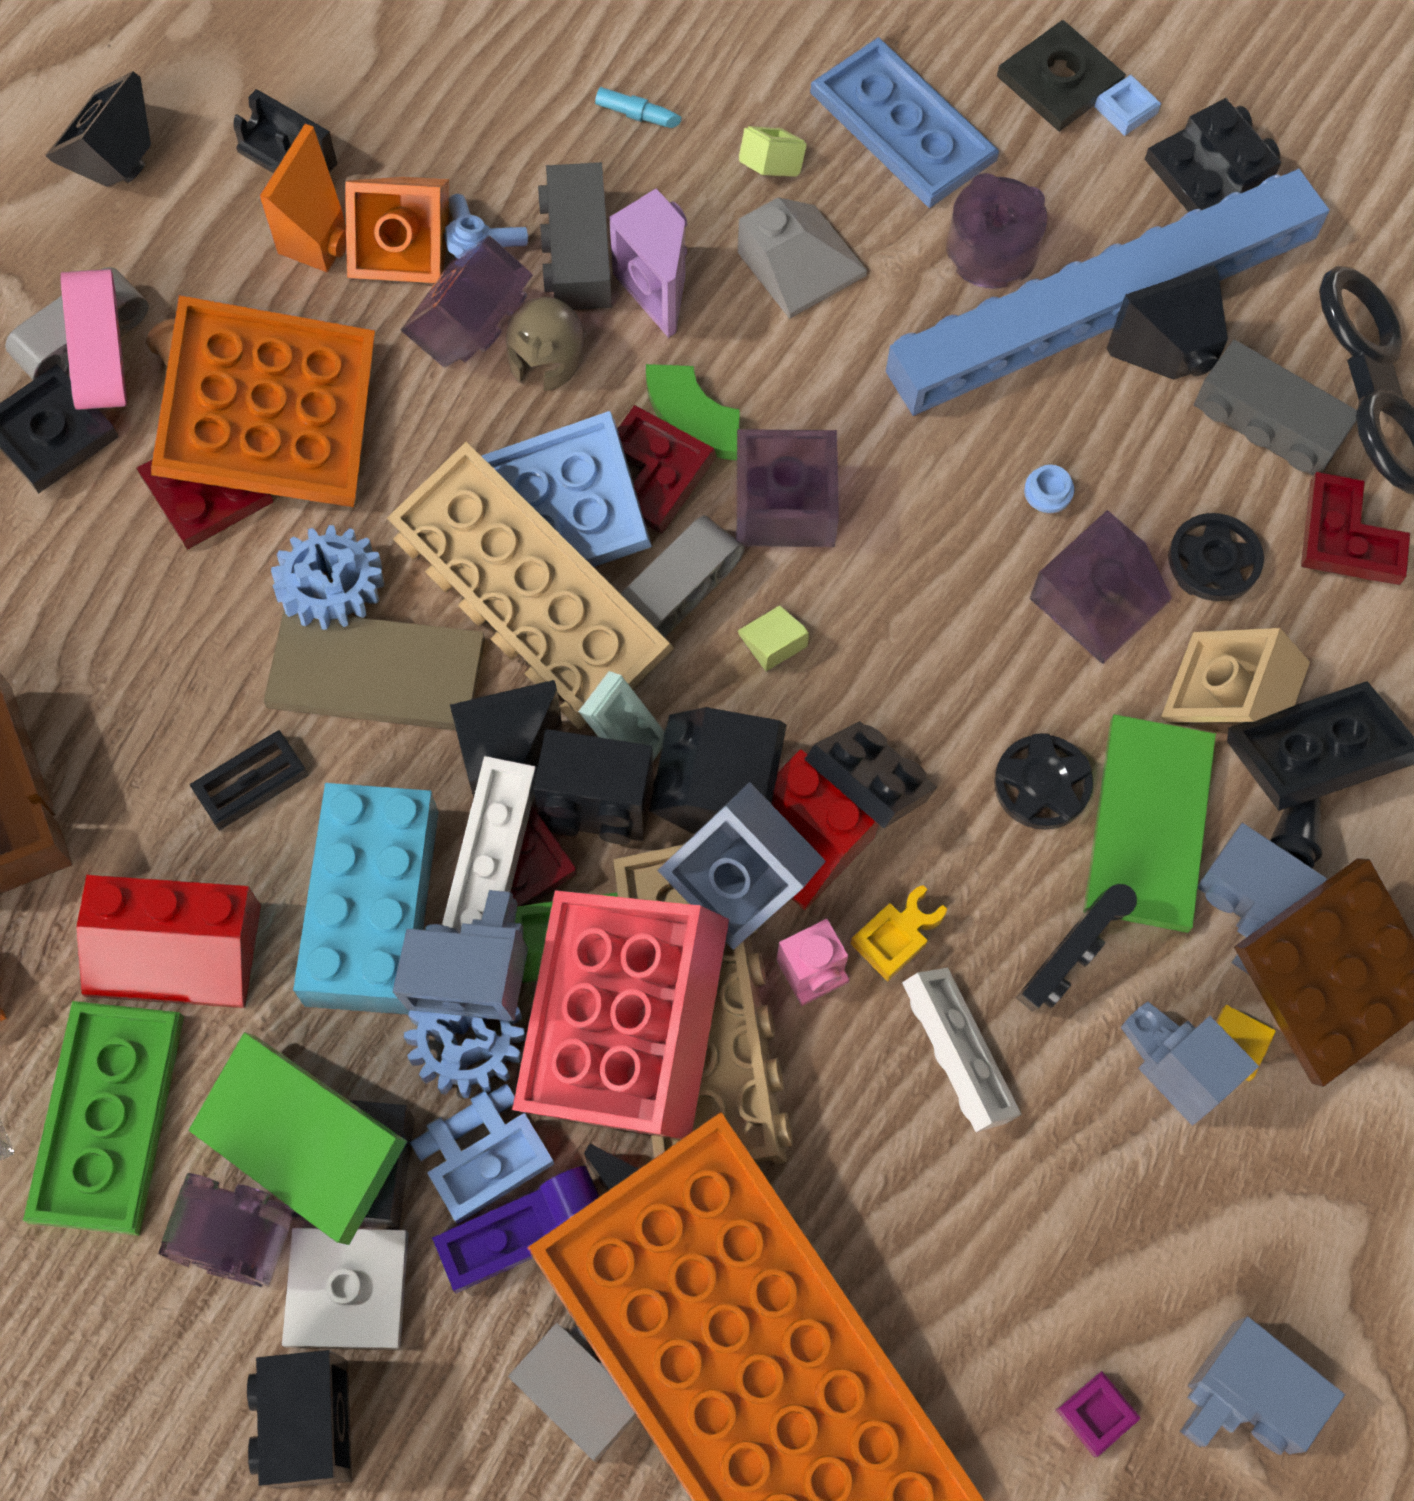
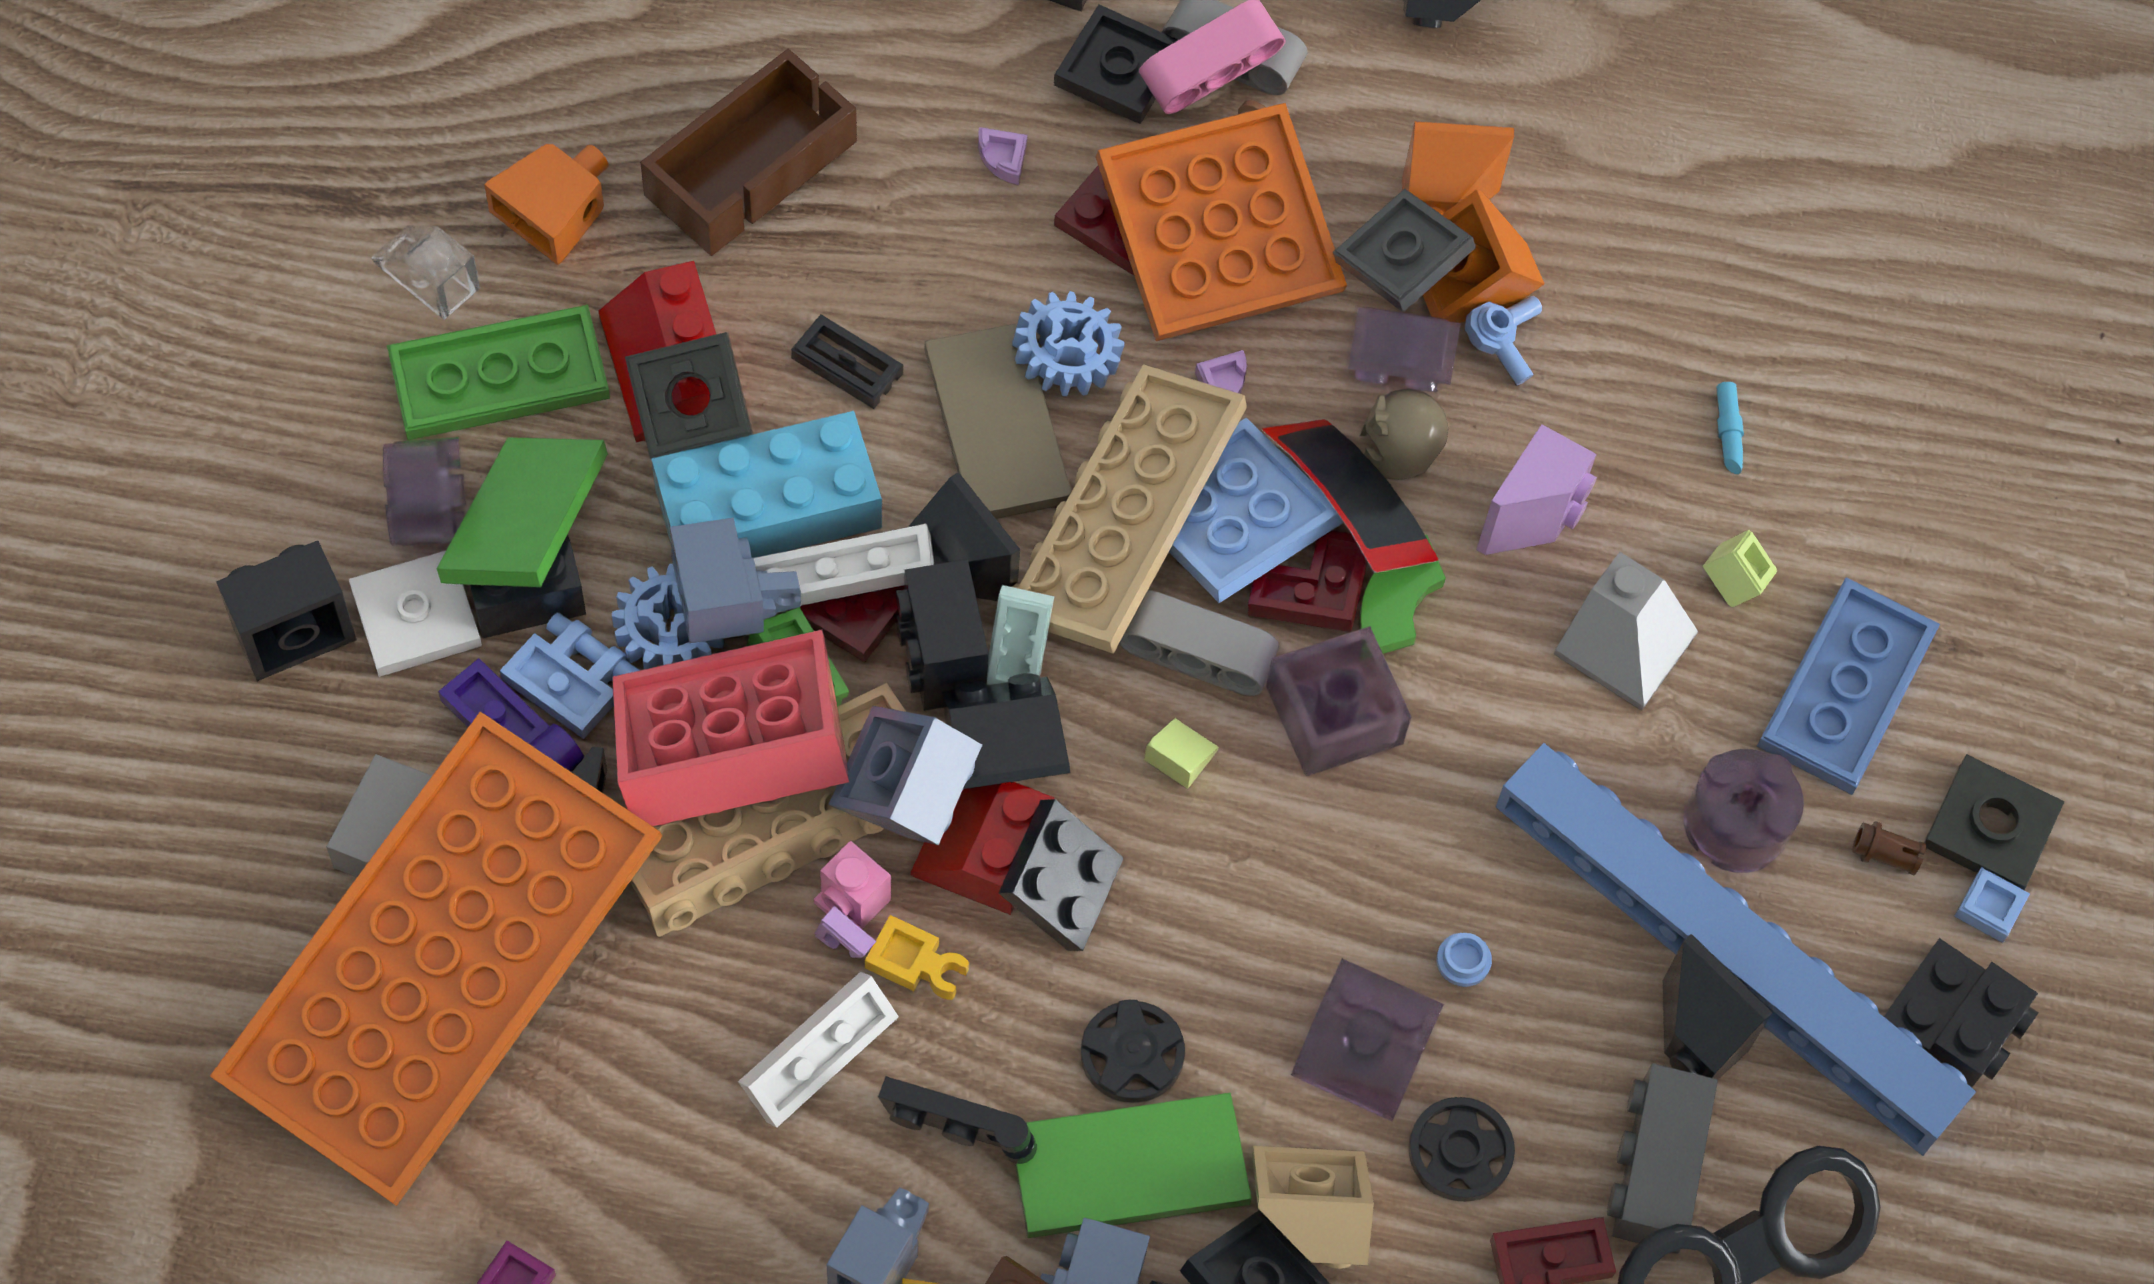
camera: 65 degrees right, 5 degrees down
(89, 564) = (1002, 153): none -> lavender tile
(272, 132) = (1527, 115): black hinge -> none
(282, 914) = (653, 381): none -> pearl dark grey piece
(374, 263) = (1404, 250): none -> dark grey tile
(413, 465) = (1224, 372): none -> lavender tile
(576, 235) = (1574, 403): dark grey brick -> none
(585, 397) = (1358, 493): none -> black sticker
(842, 993) = (839, 929): none -> lavender tile
(1052, 157) = (1888, 848): none -> reddish brown pin

